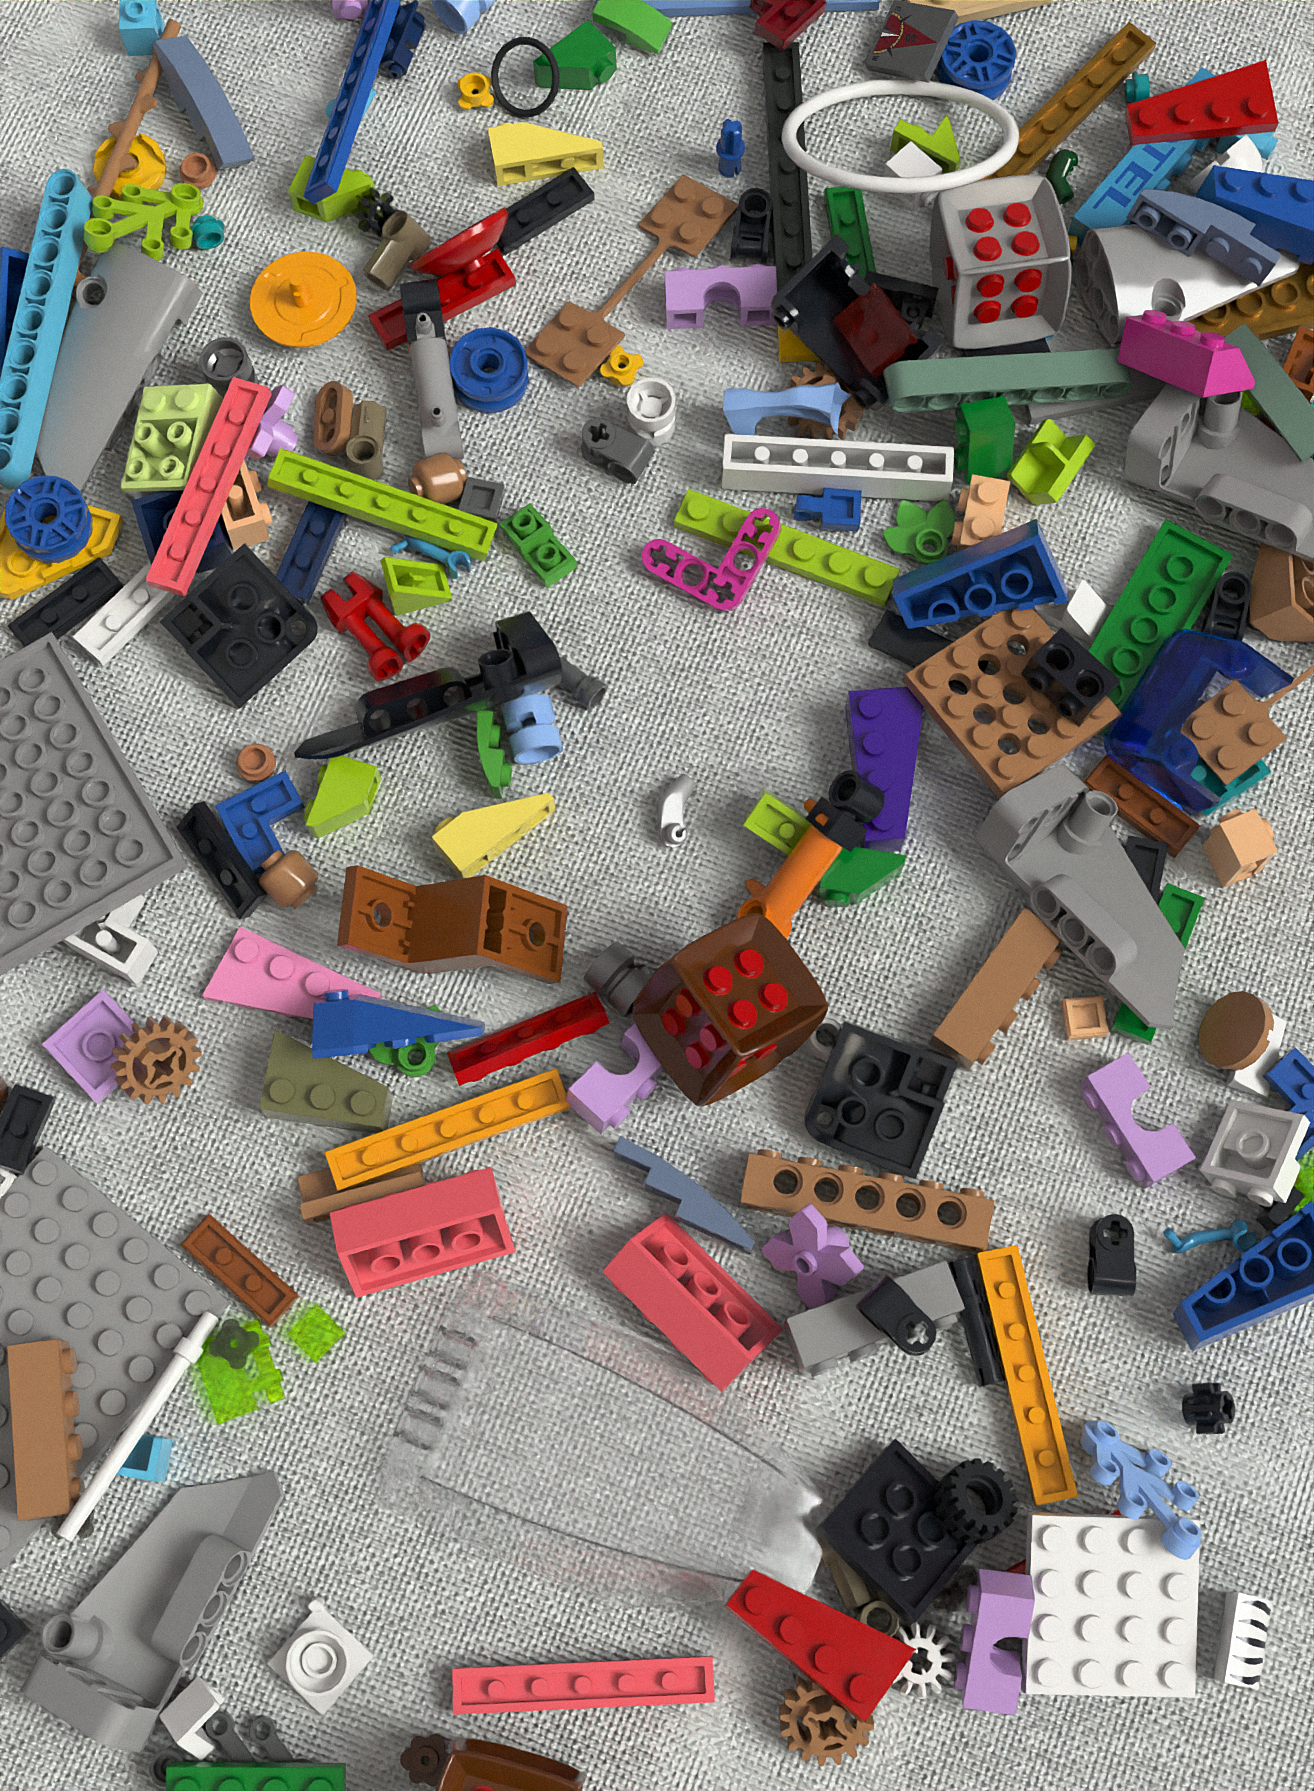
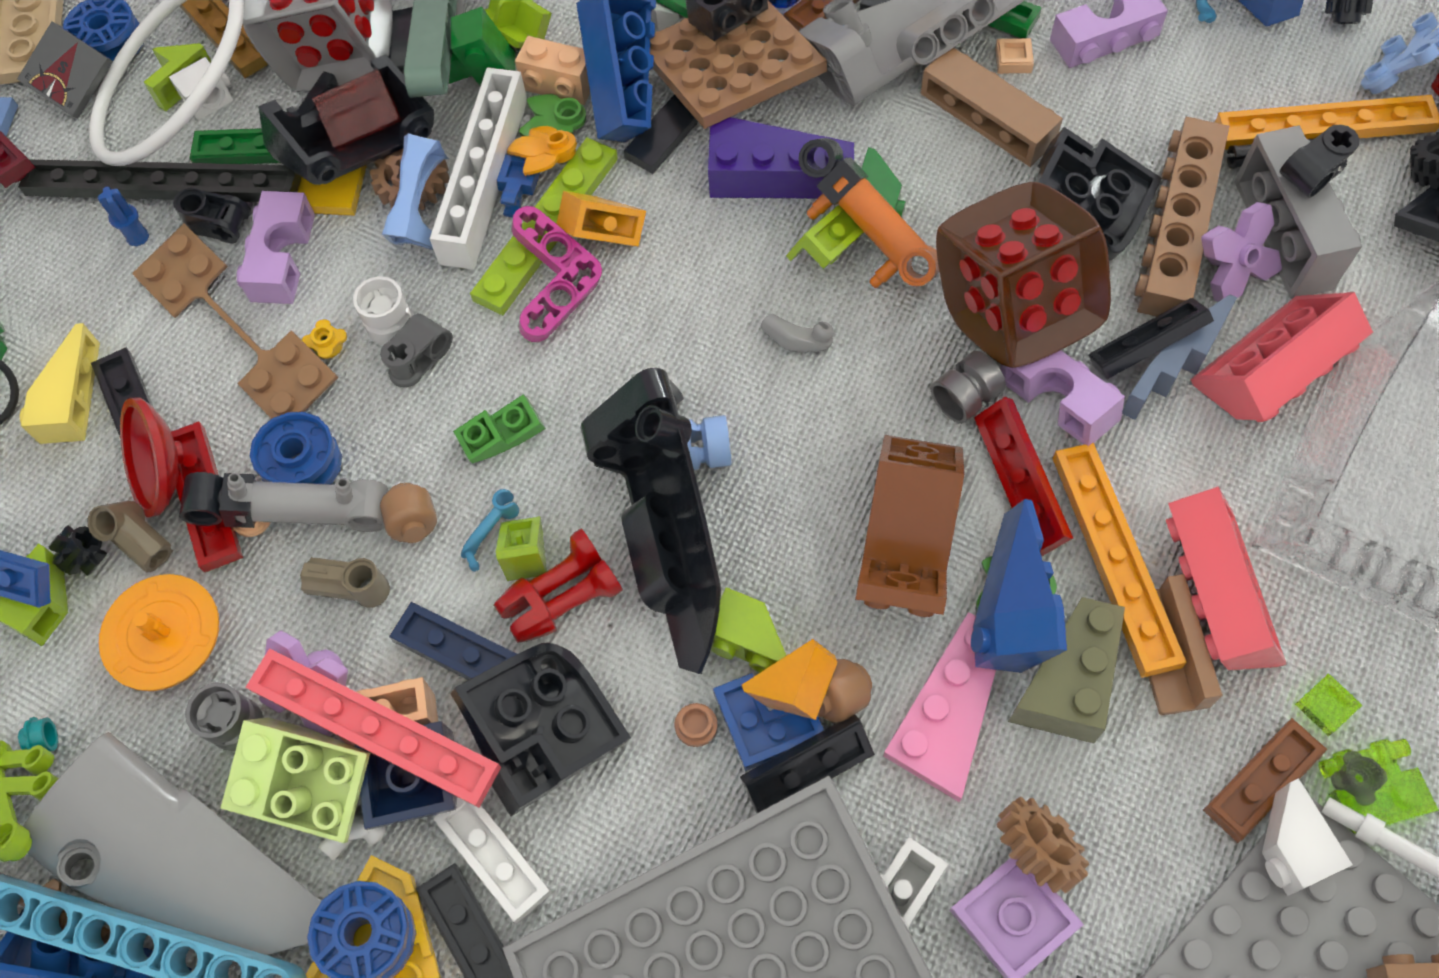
camera: 80 degrees left, 10 degrees down
(164, 1281) = (1299, 842): none -> white slope
(275, 831) = (796, 681): none -> light orange slope
(332, 418) = (312, 613): medium nougat plate -> none
(381, 504) = (423, 569): lime plate -> none
(482, 498) = (440, 474): dark grey plate -> none
(486, 832) = (810, 506): light yellow slope -> none
(493, 761) = (735, 485): bright green slope -> none
(693, 1159) = (1150, 337): none -> black tile
(785, 595) = (600, 219): none -> light orange slope
(872, 522) = (543, 148): none -> light orange plate
(1111, 1263) = (1227, 54): black piece -> none

